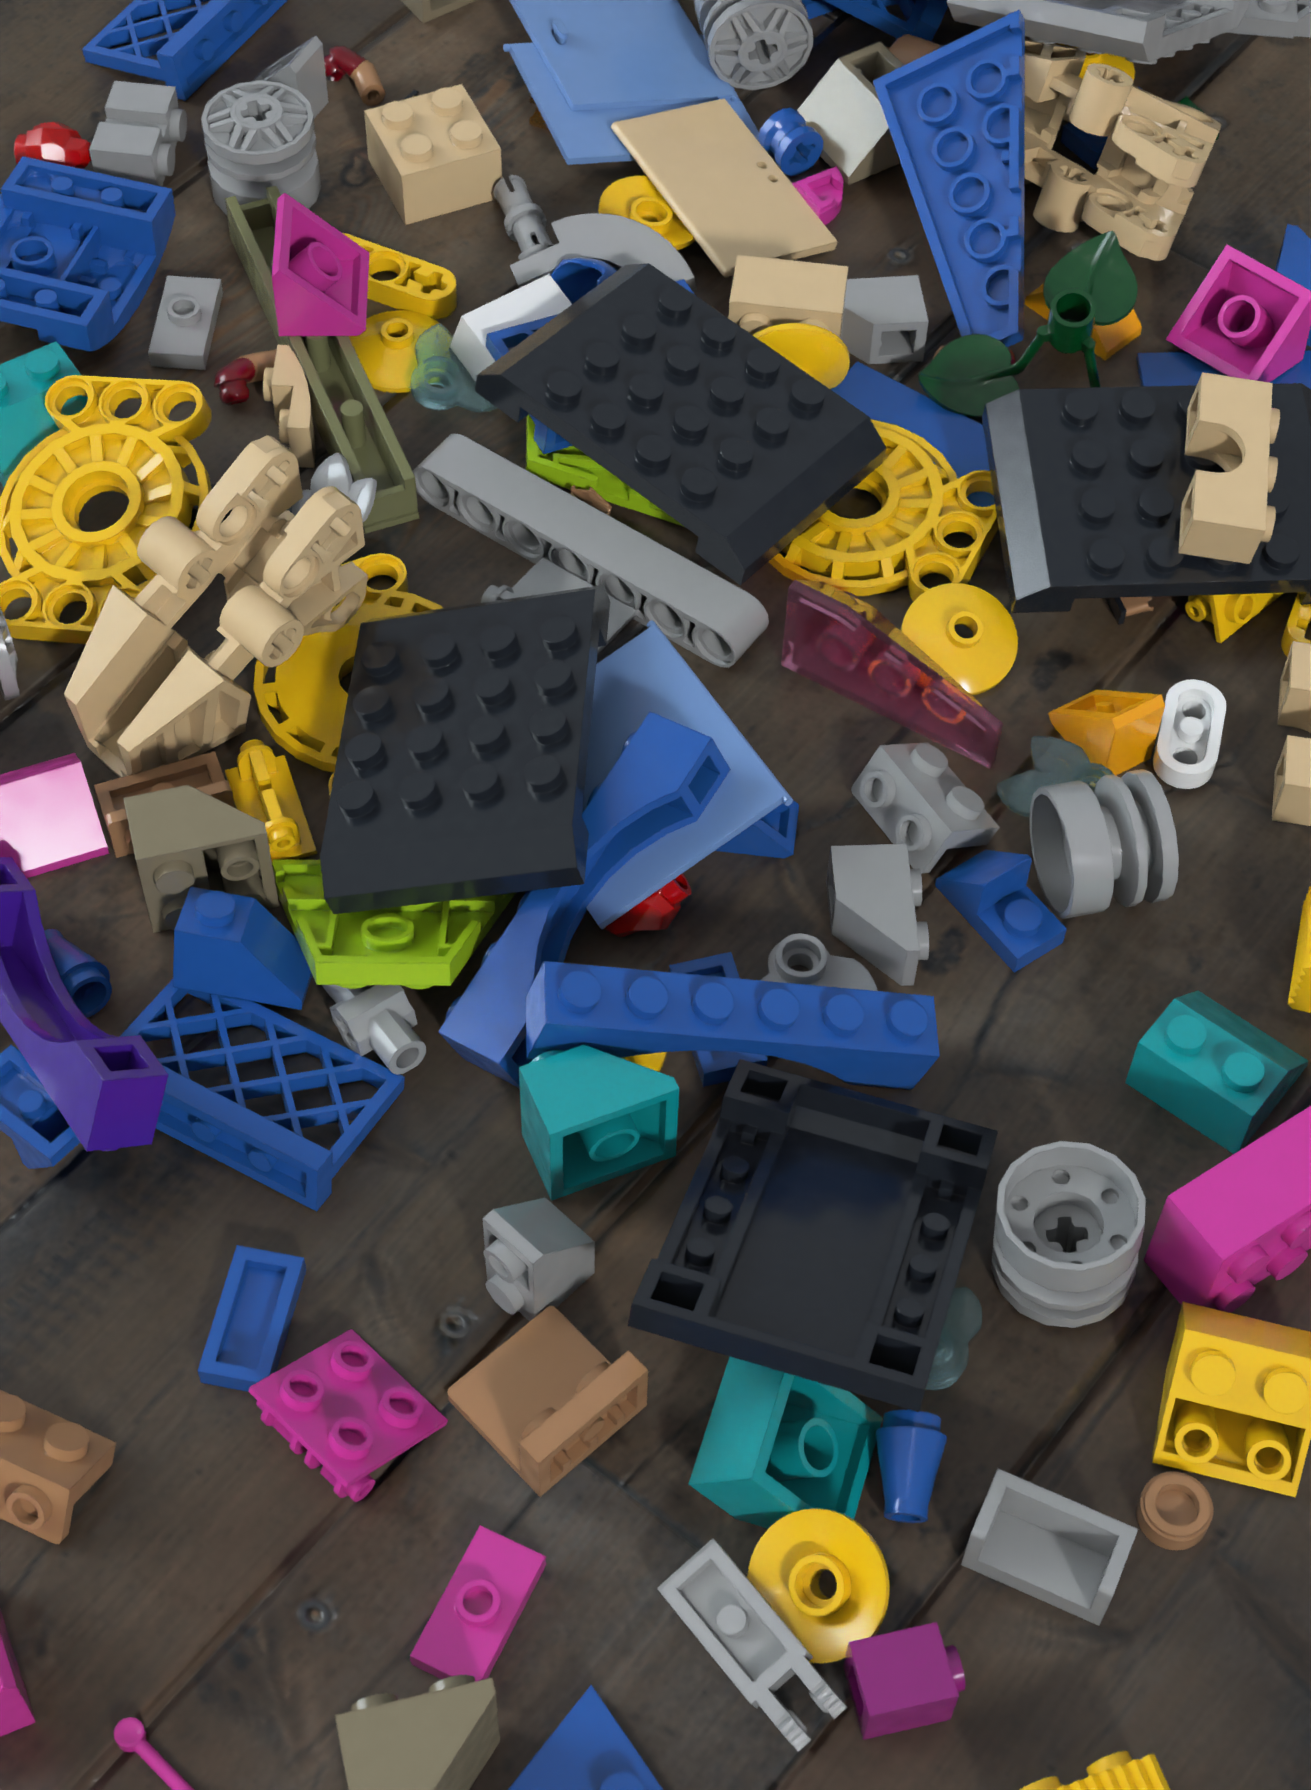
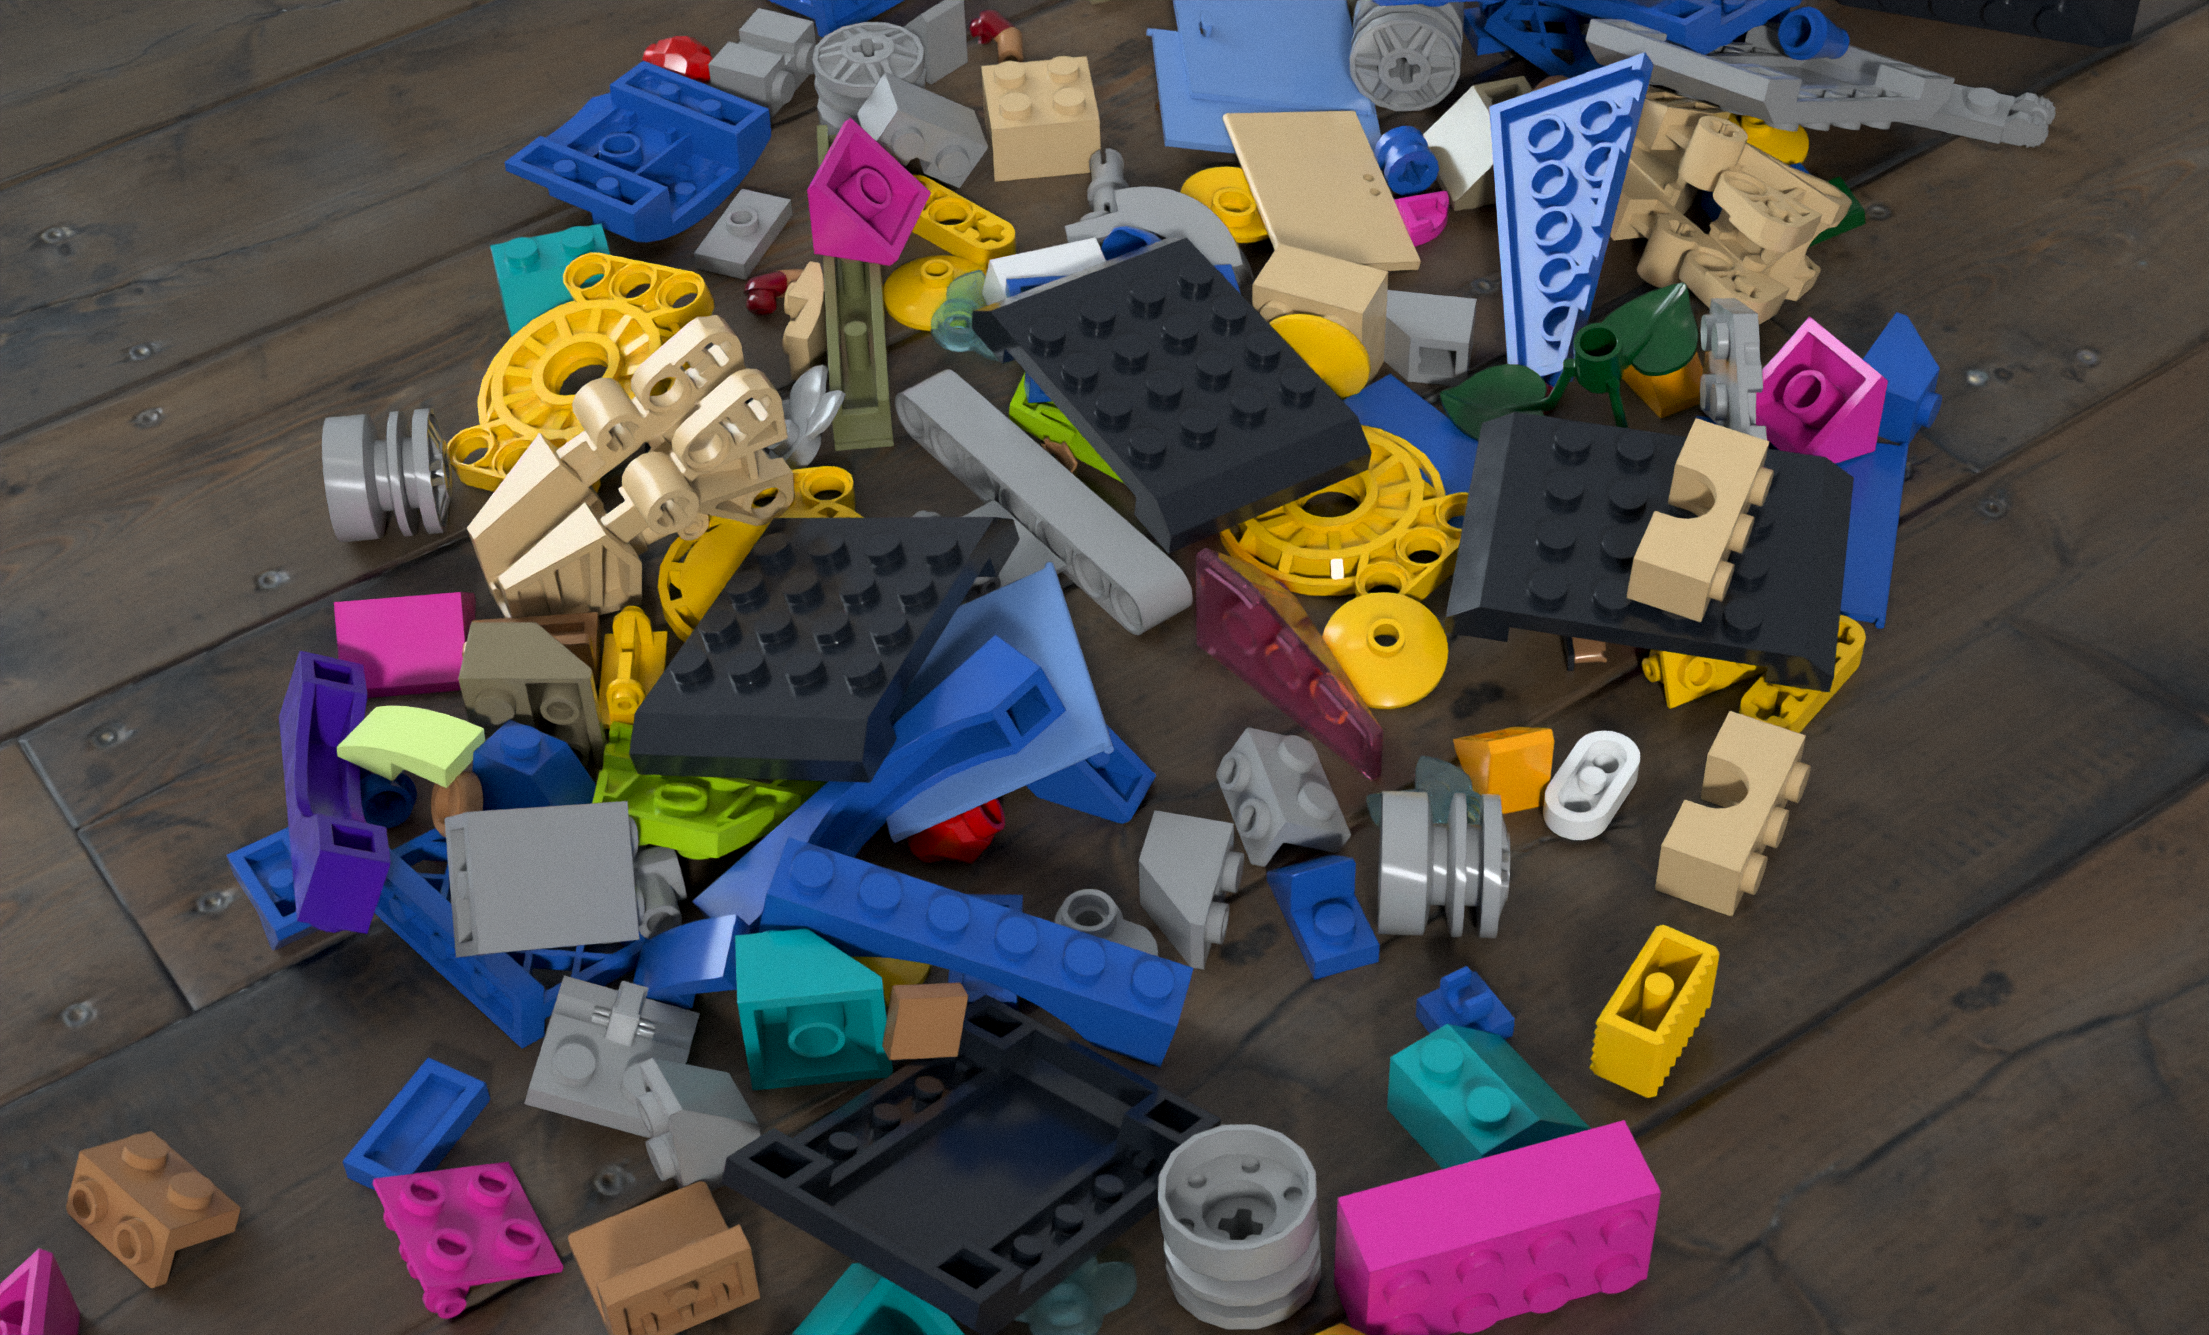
camera: 20 degrees right, 10 degrees down
(108, 929) = (412, 740): none -> yellowish green slope
(167, 982) = (460, 797): none -> medium nougat tile
(301, 1051) = (543, 878): none -> light grey panel
(332, 184) = (923, 126): none -> light grey brick
(415, 1203) = (595, 1051): none -> light grey hinge
(457, 1094) = (690, 960): none -> blue slope
(713, 1105) = (924, 1021): none -> medium nougat tile
(1160, 976) = (1466, 1003): none -> blue tile
(1186, 310) = (1731, 366): none -> light grey wing

